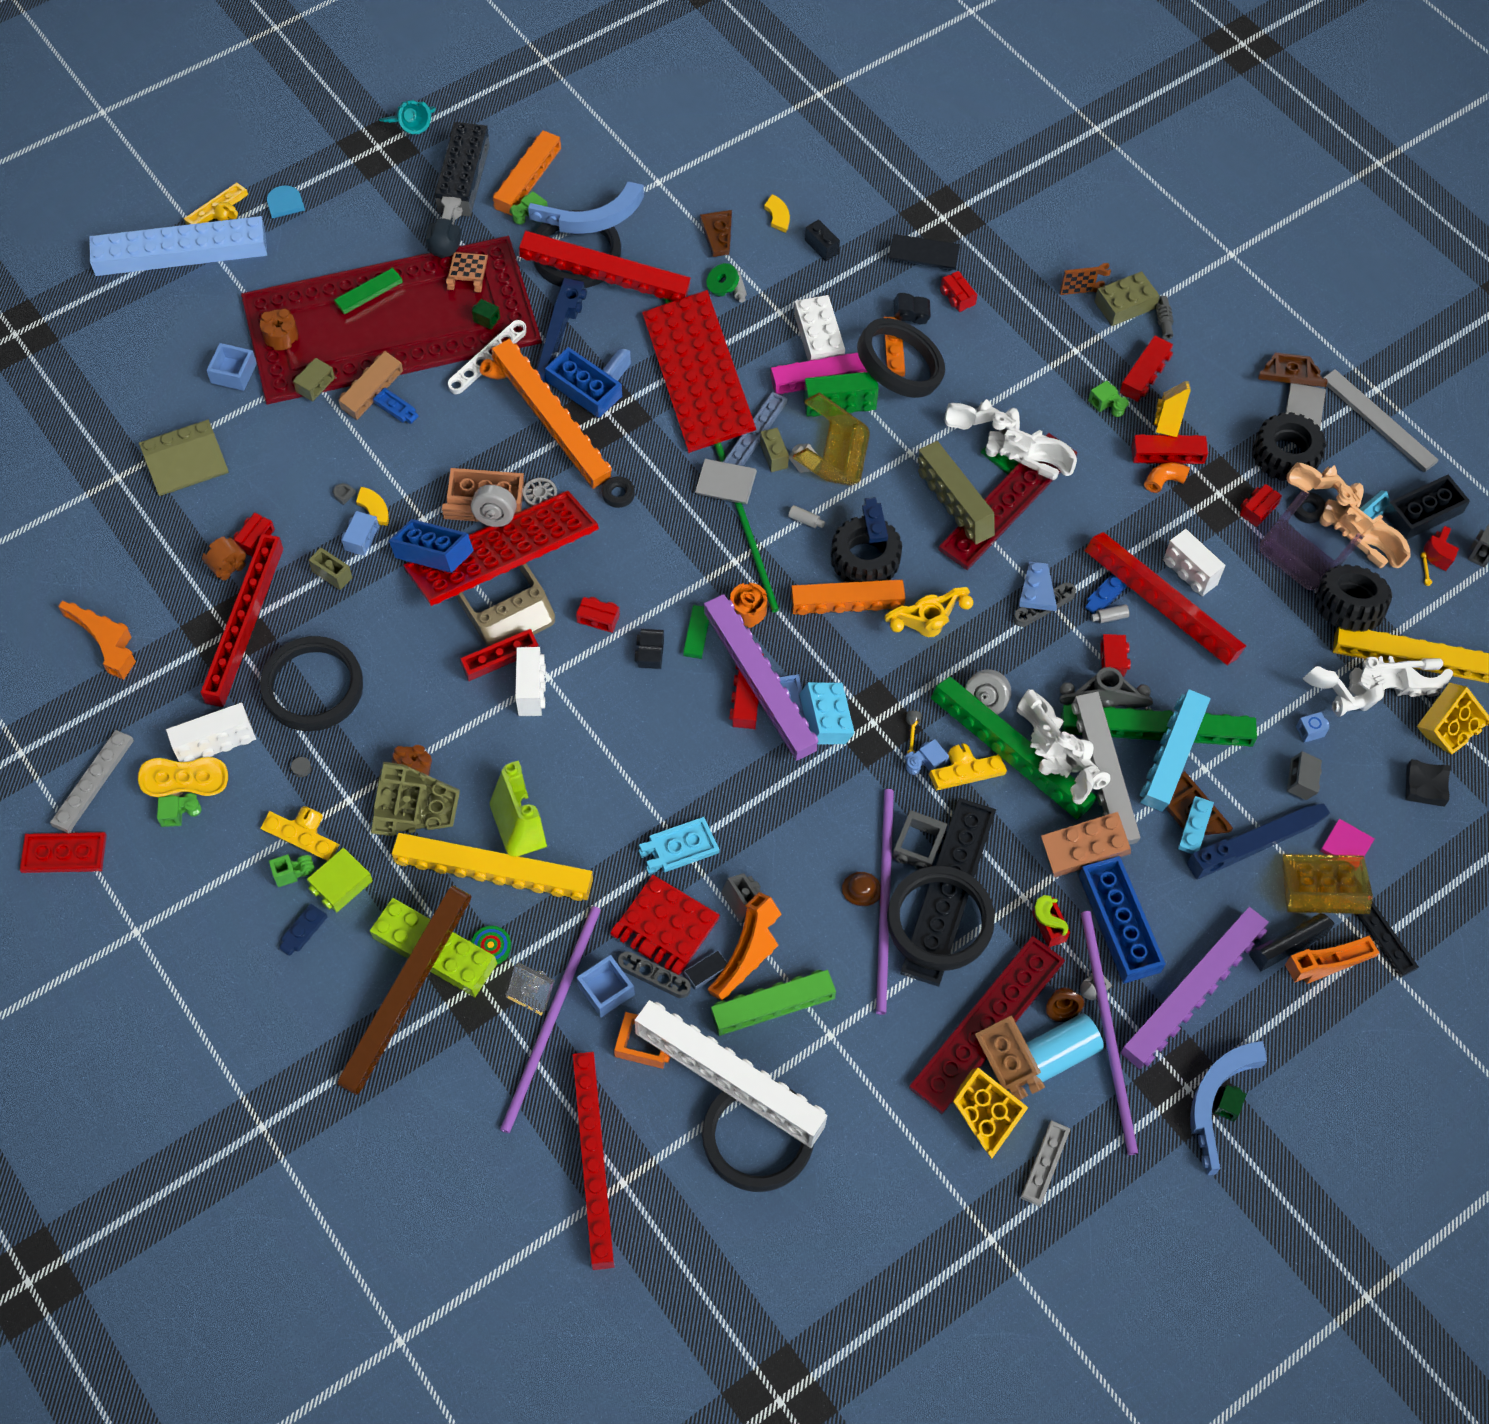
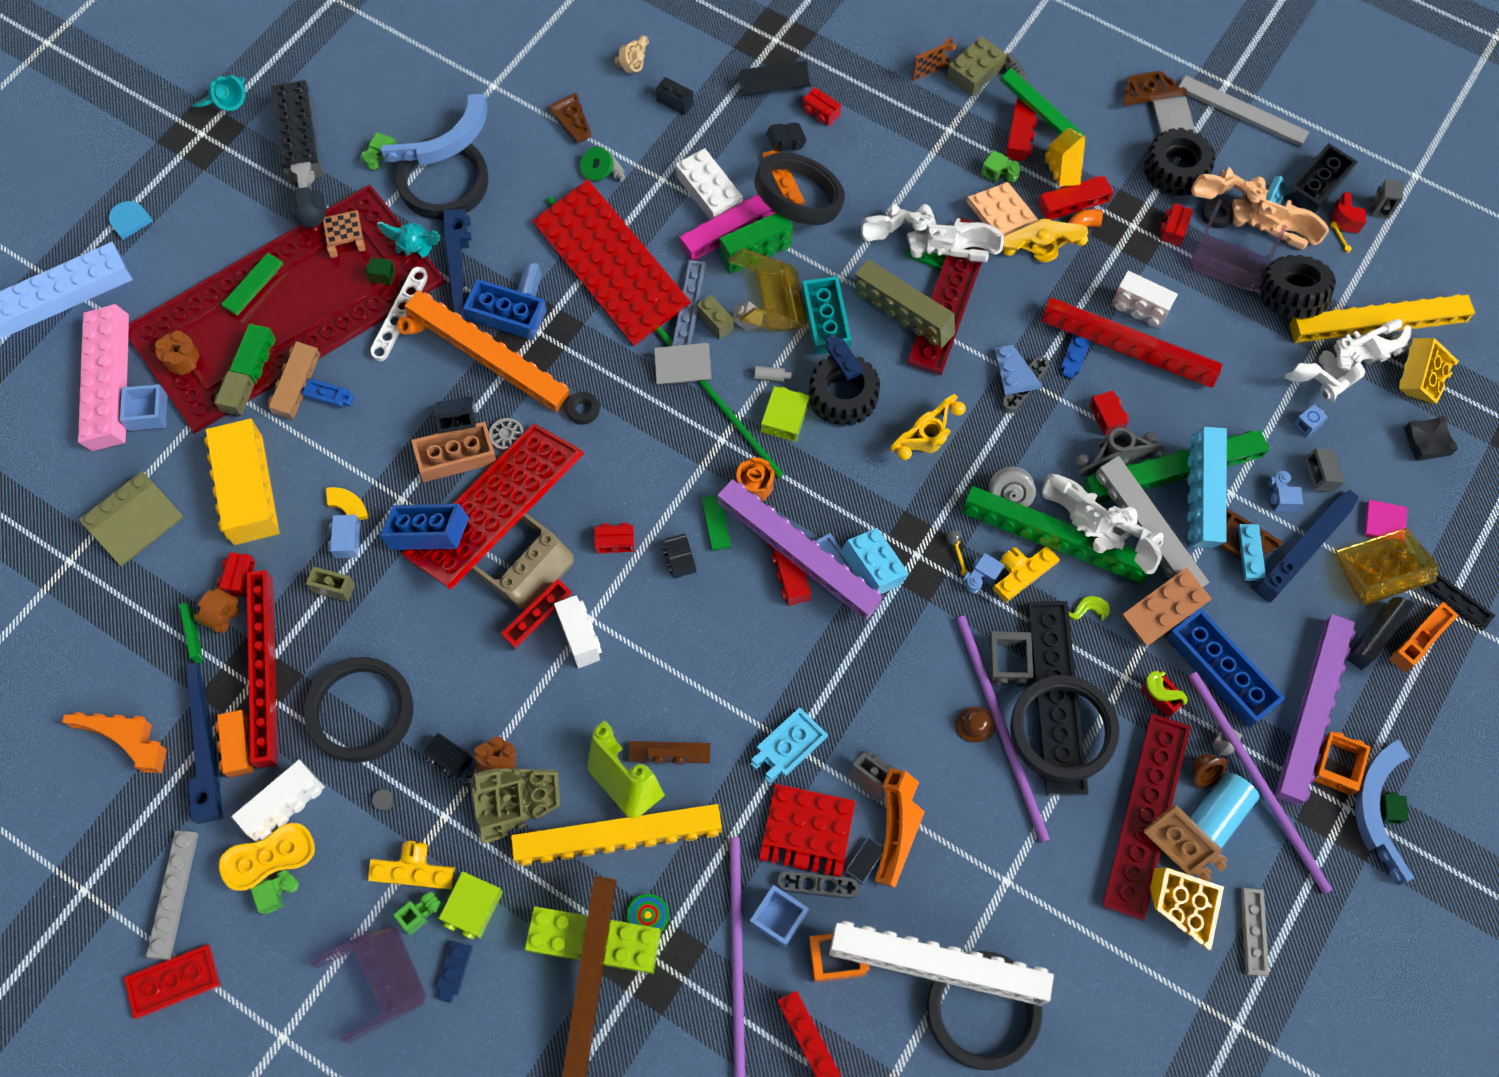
camera: 20 degrees left, 5 degrees up
(159, 697) = (207, 776): none -> dark blue piece
(193, 675) = (234, 743): none -> orange brick
(195, 571) = (191, 633): none -> green tile
(206, 329) = (102, 377): none -> bright pink brick
(219, 207) = (63, 245): yellow plate -> none
(245, 911) = (388, 974): none -> clear purple windscreen
(289, 456) = (241, 482): none -> yellow brick
(343, 493) = (310, 500): dark grey tile -> none
(345, 349) = (253, 352): none -> green brick
(371, 748) = (447, 755): none -> black brick
(458, 512) = (437, 480): nougat tile -> none
(493, 505) = (470, 465): light grey wheel -> none
(499, 459) = (455, 414): none -> black brick
(524, 293) = (410, 238): none -> teal helmet
(527, 171) = (362, 115): orange brick -> none
(530, 988) = (707, 947): clear tile -> none
(570, 814) = (669, 752): none -> reddish brown bracket
(603, 267) = (478, 187): red brick -> none
(773, 1002) = (942, 870): bright green brick -> none
(779, 213) = (621, 81): yellow tile -> none
(799, 193) = (635, 55): none -> tan pin
(802, 556) = (785, 413): none -> lime brick
(847, 596) = (844, 439): orange brick -> none
(879, 476) = (825, 312): none -> teal brick
(1020, 820) = (1092, 603): none -> lime piece
(1092, 438) = (1002, 209): none -> light nougat plate
(1111, 614) = (1089, 373): light grey cylinder -> none
(1119, 476) = (1045, 238): none -> yellow piece
(1172, 354) = (1037, 102): none -> green tile
(1185, 1058) = (1333, 780): none -> orange window
(1255, 788) = (1284, 497): none -> medium blue brick

